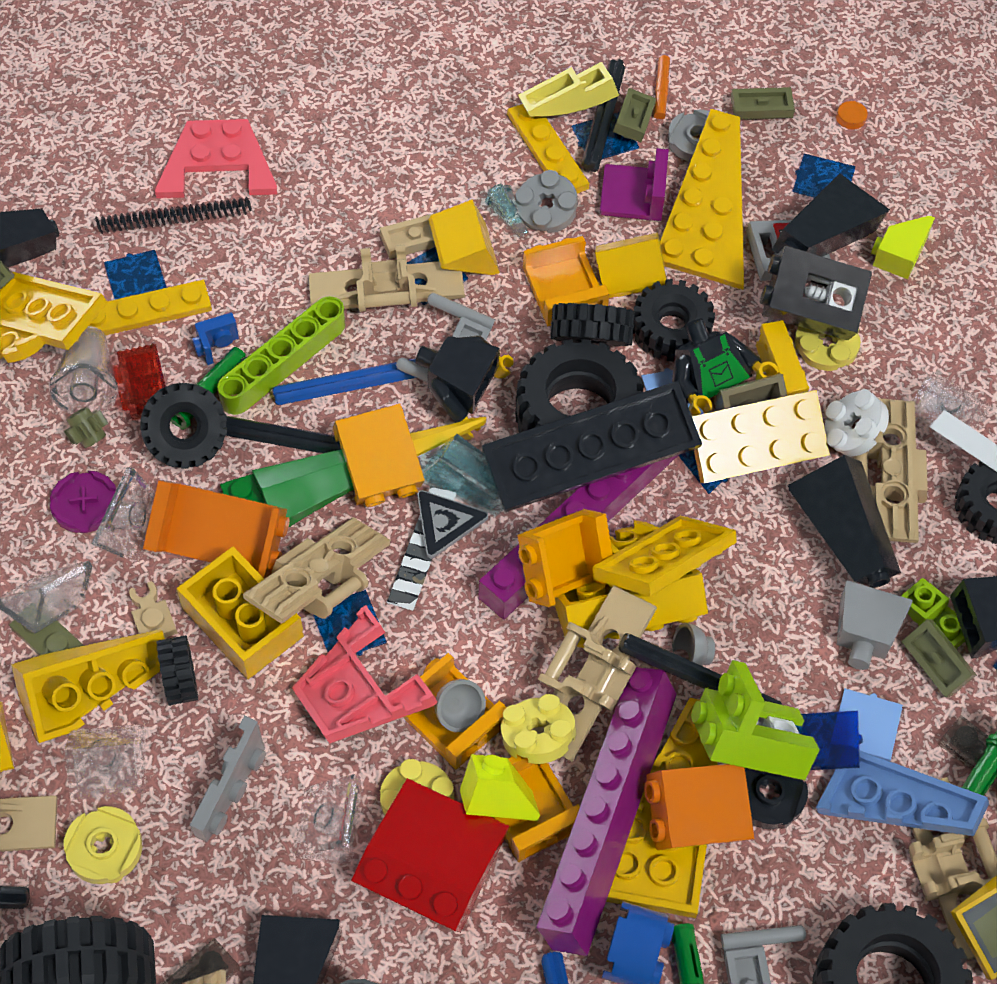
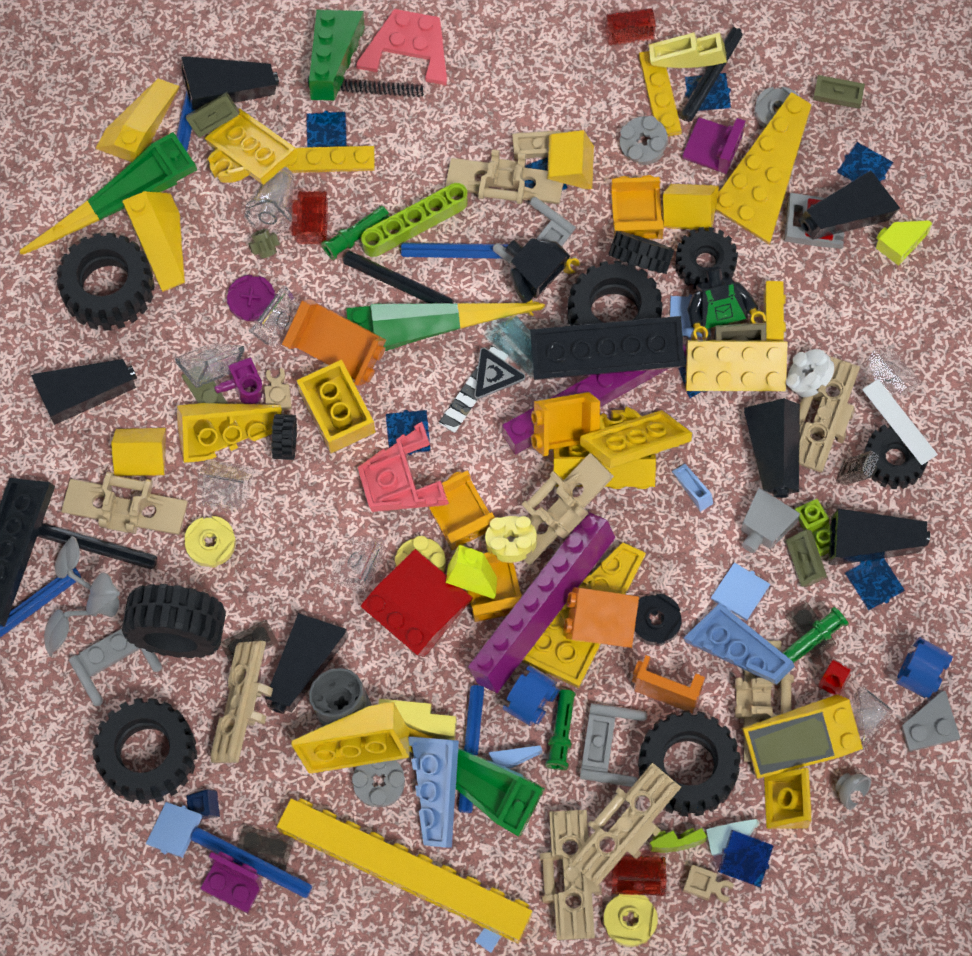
camera: 20 degrees right, 10 degrees up
(95, 605) = (243, 375): none -> magenta piece
(121, 176) = (333, 46): none -> green wedge
(192, 450) = (326, 278): black tyre -> none
(214, 332) = (370, 190): blue bracket -> none
(238, 764) = (305, 514): light grey wing -> none
(312, 562) = (394, 383): tan piece -> none
(379, 455) = (460, 315): light orange panel -> none
(459, 704) = (464, 508): light grey piece -> none
(488, 81) = (630, 26): none -> clear red brick
(503, 203) = (611, 134): clear light blue cone -> none
(634, 115) = (734, 80): olive plate -> none
(662, 86) = (766, 59): orange piece -> none
(674, 663) = (632, 530): black axle -> none
(695, 642) = (641, 511): light grey piece -> none
(751, 732) = (652, 576): lime brick -> none
(757, 603) = (694, 487): none -> light blue piece
(785, 299) = (797, 247): black brick -> none
(823, 885) = (666, 689): none -> orange panel
(824, 357) = (816, 288): light yellow plate -> none
(836, 737) = (707, 595): clear blue piece -> none
(851, 115) = (906, 117): orange tile -> none
(963, 524) = (858, 468): none -> clear smoke plate

